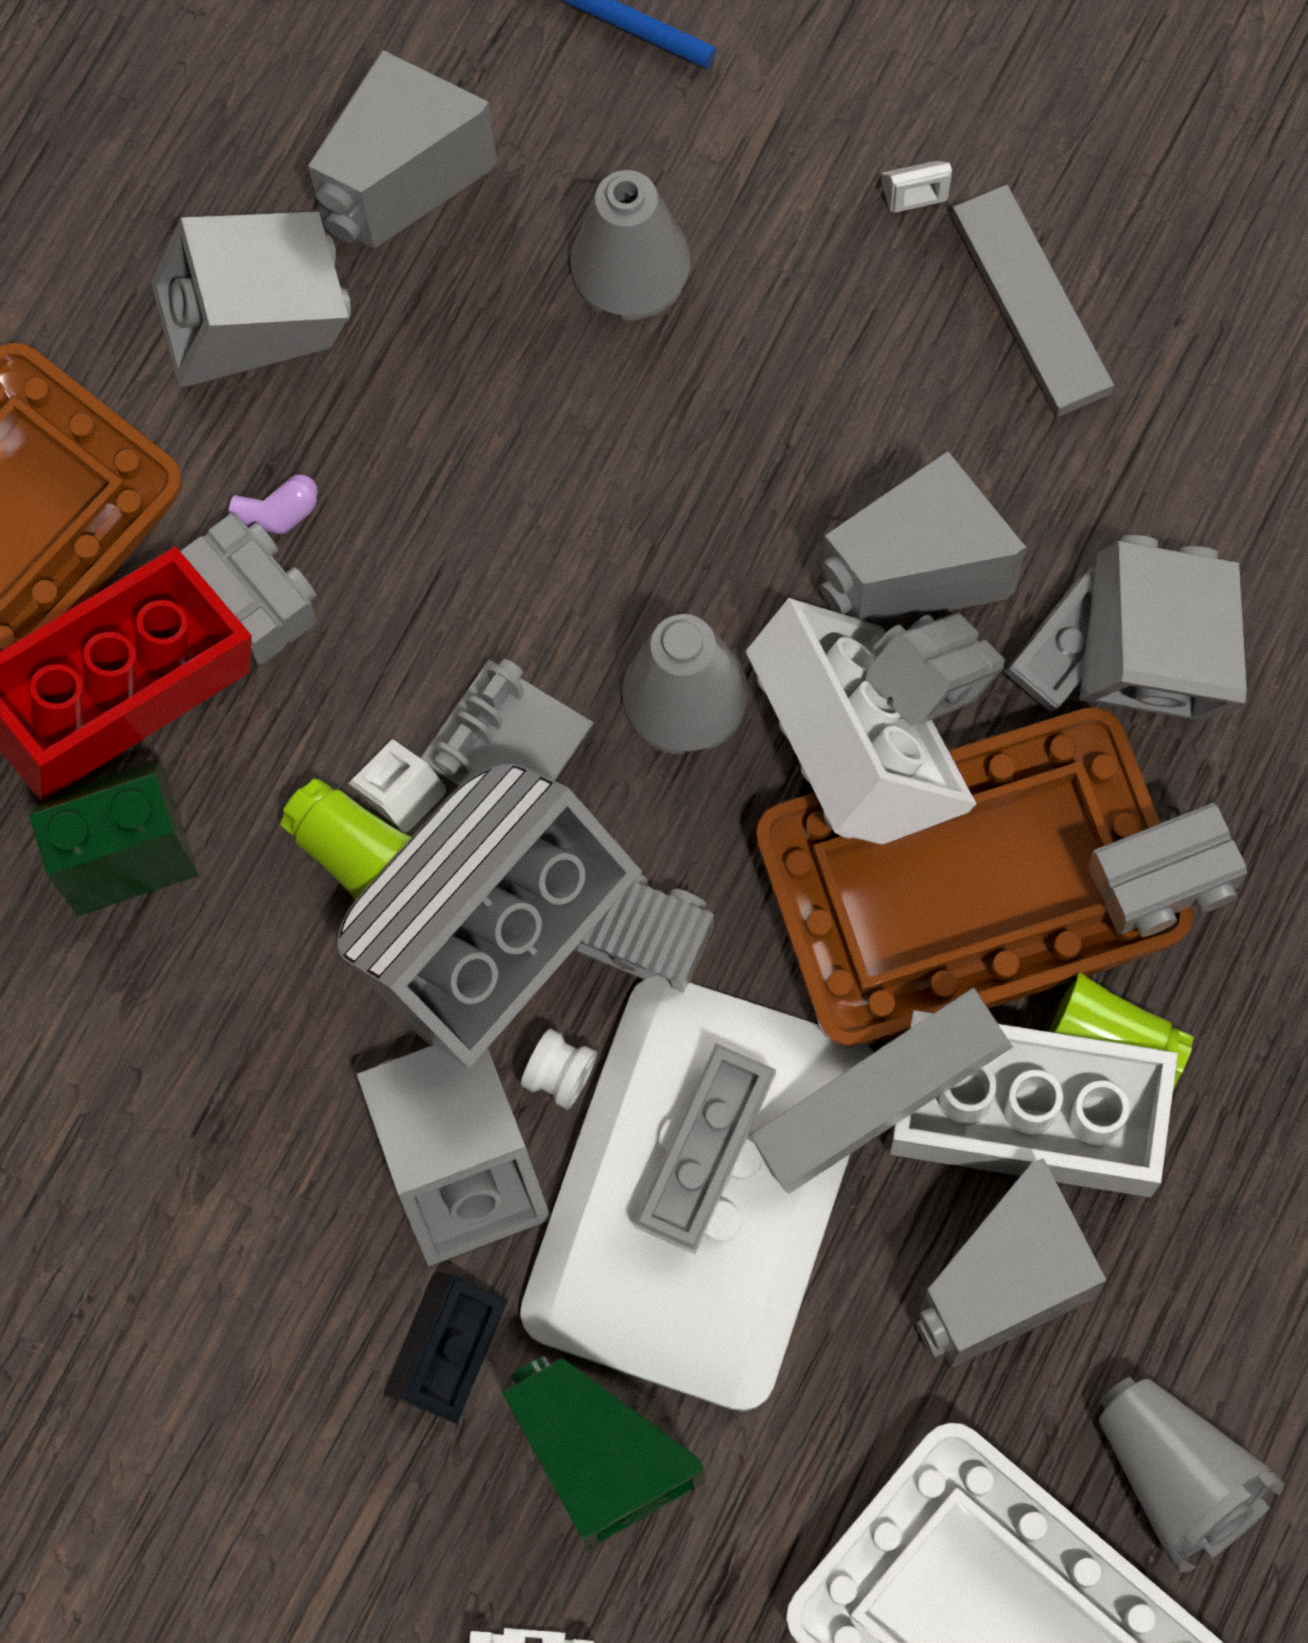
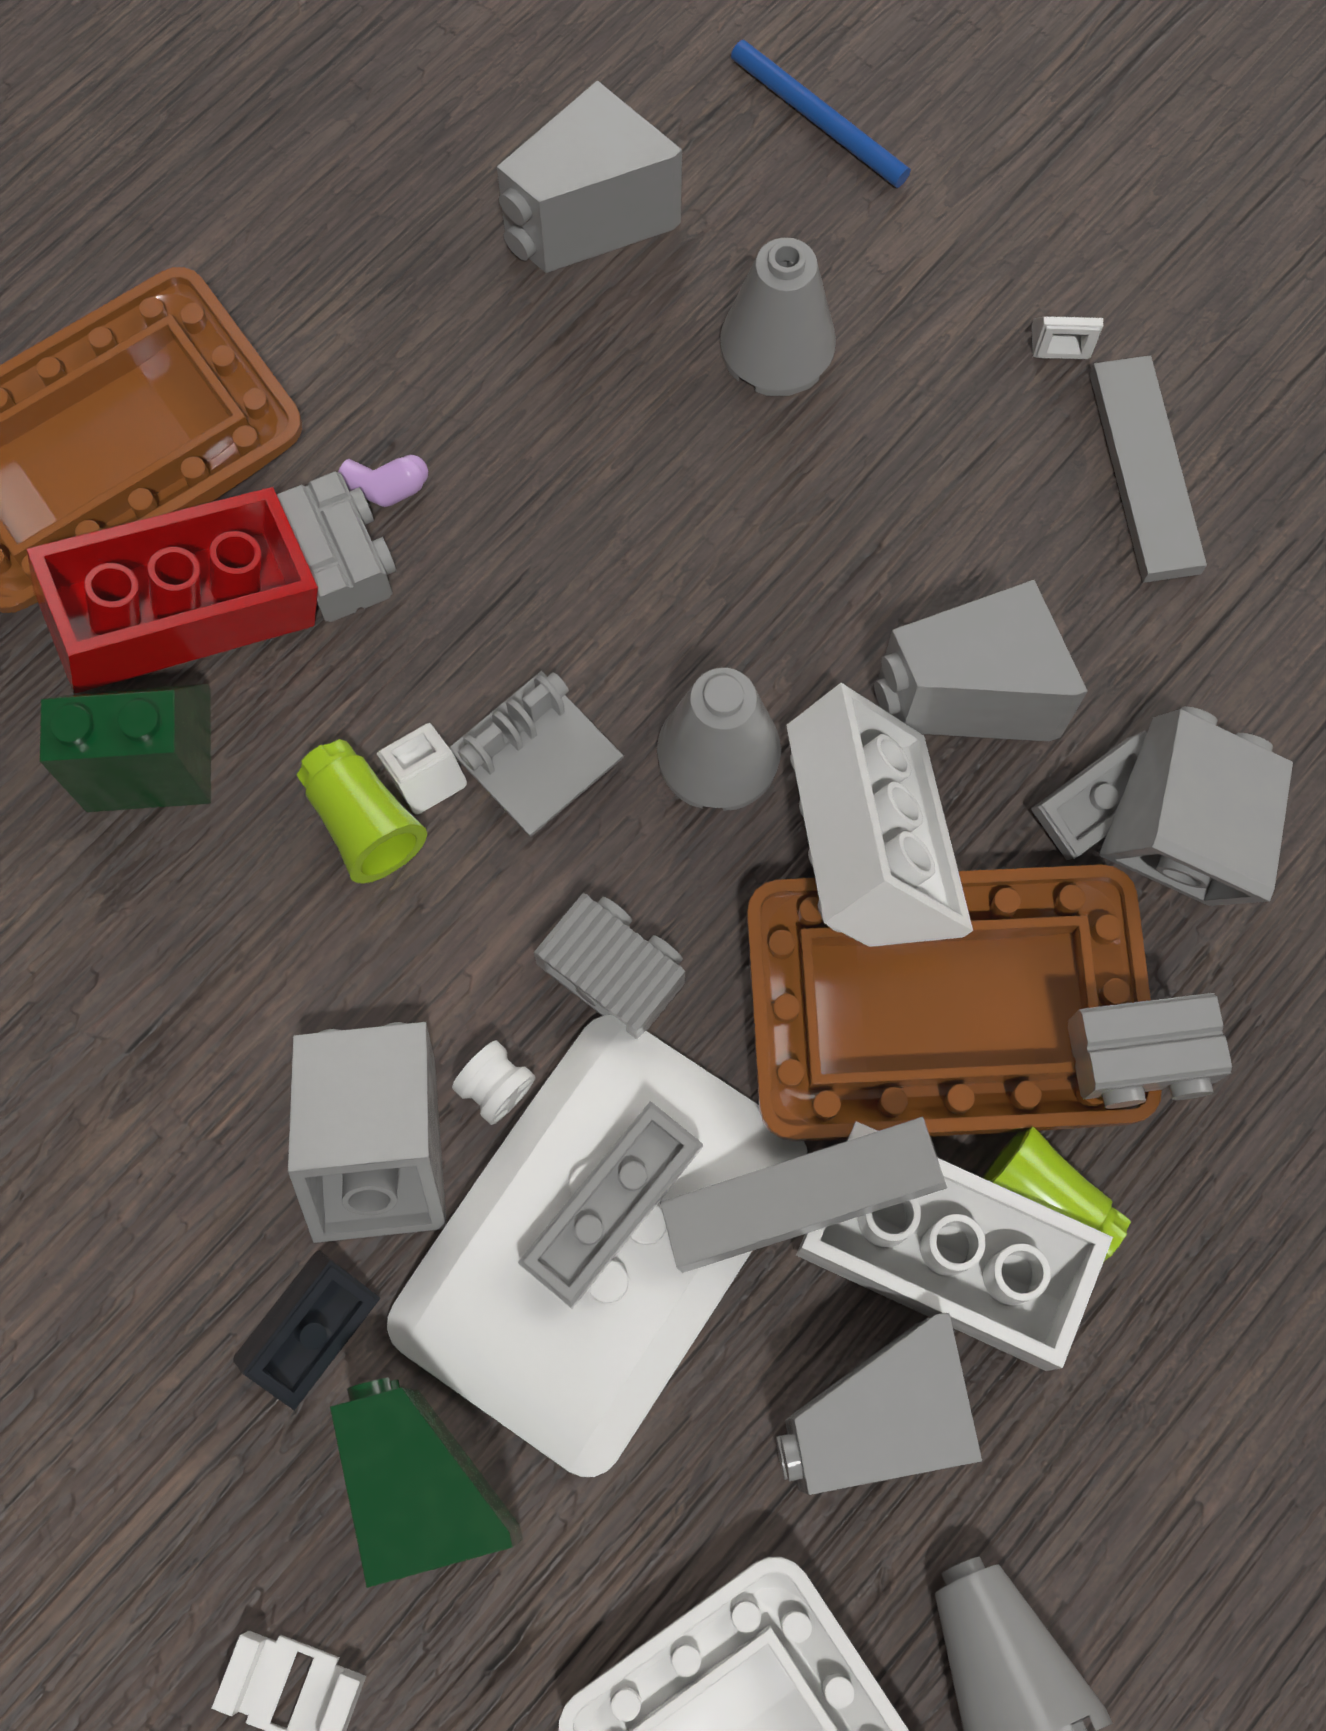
camera: 10 degrees right, 0 degrees up
(247, 293) = (415, 277): light grey slope -> none
(484, 906) = (459, 906): light grey brick -> none
(933, 667) = (963, 786): light grey brick -> none

